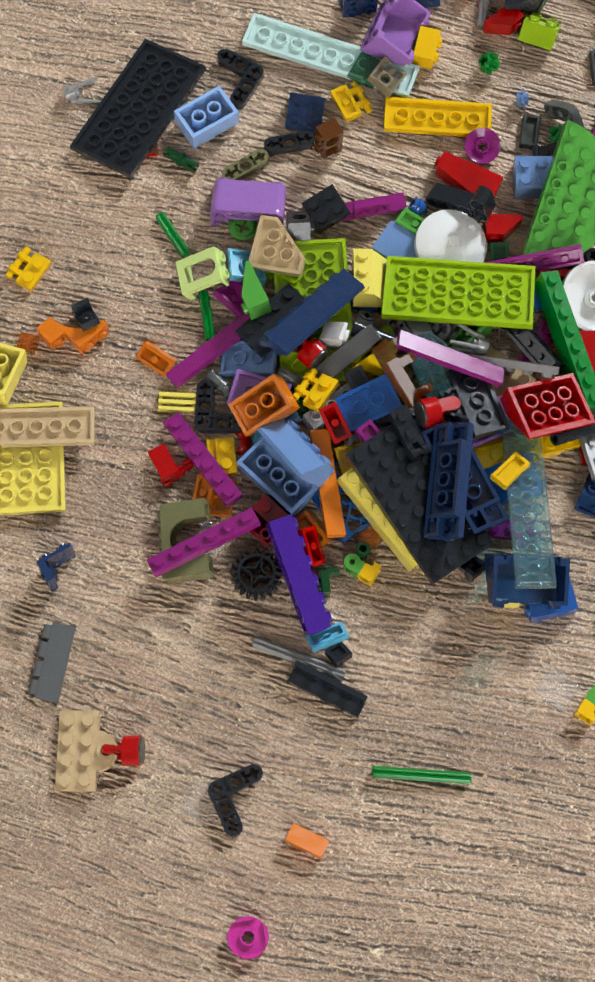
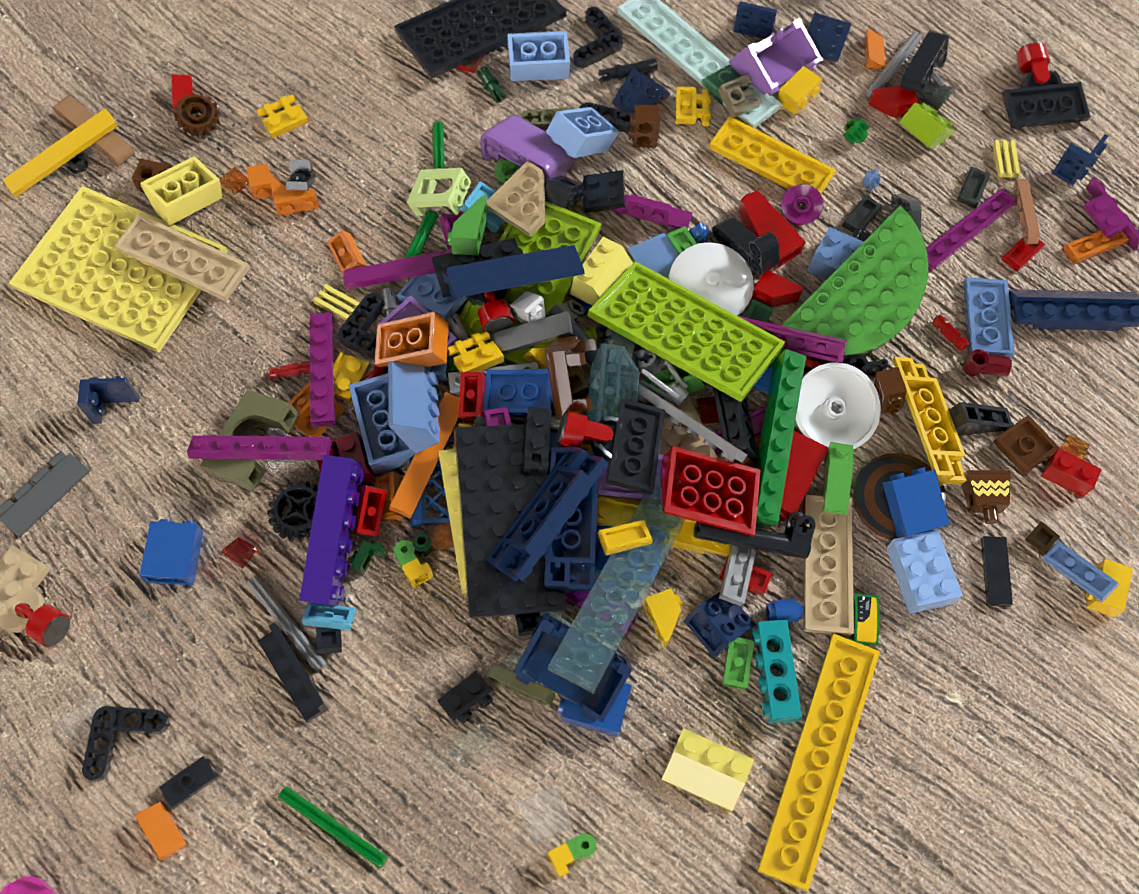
camera: 30 degrees right, 5 degrees down
(163, 462) = (282, 353): red tile -> none
(183, 652) = (171, 552): none -> blue brick
(231, 626) = (239, 552): none -> clear red slope
(277, 98) = (619, 71): none -> black pin
(285, 168) = (582, 132): none -> light blue brick
(303, 800) = (188, 782): none -> black plate
(355, 377) = (522, 359): black plate -> none
(450, 358) = (629, 385): tile -> none
(457, 641) = (466, 698): none -> black bracket
(490, 613) = (532, 691): none -> olive beam
(504, 344) = (707, 410): none -> clear red slope
(561, 512) = (663, 613): none -> yellow slope

